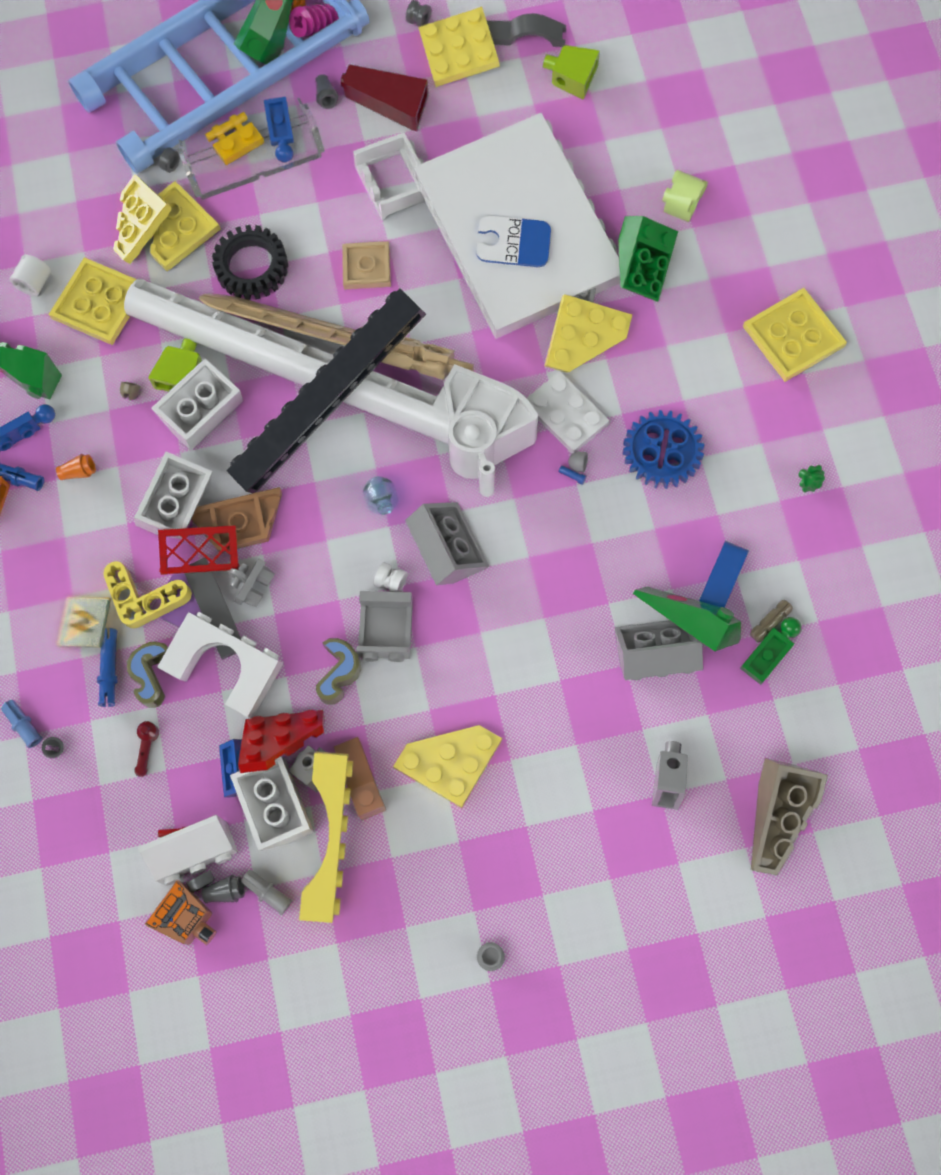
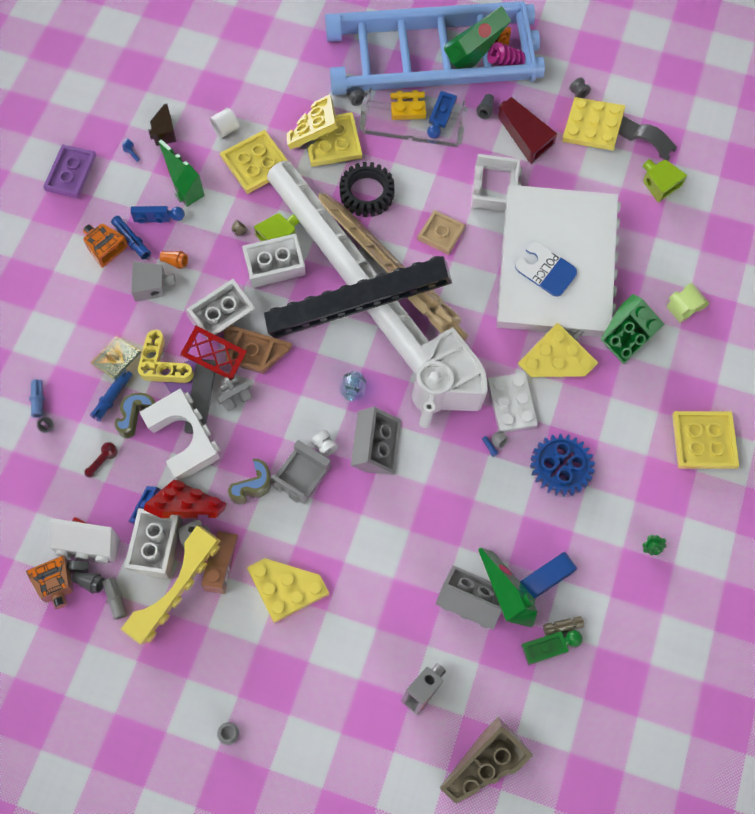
camera: 25 degrees right, 5 degrees down
(65, 510) = (149, 281): none -> light grey torso

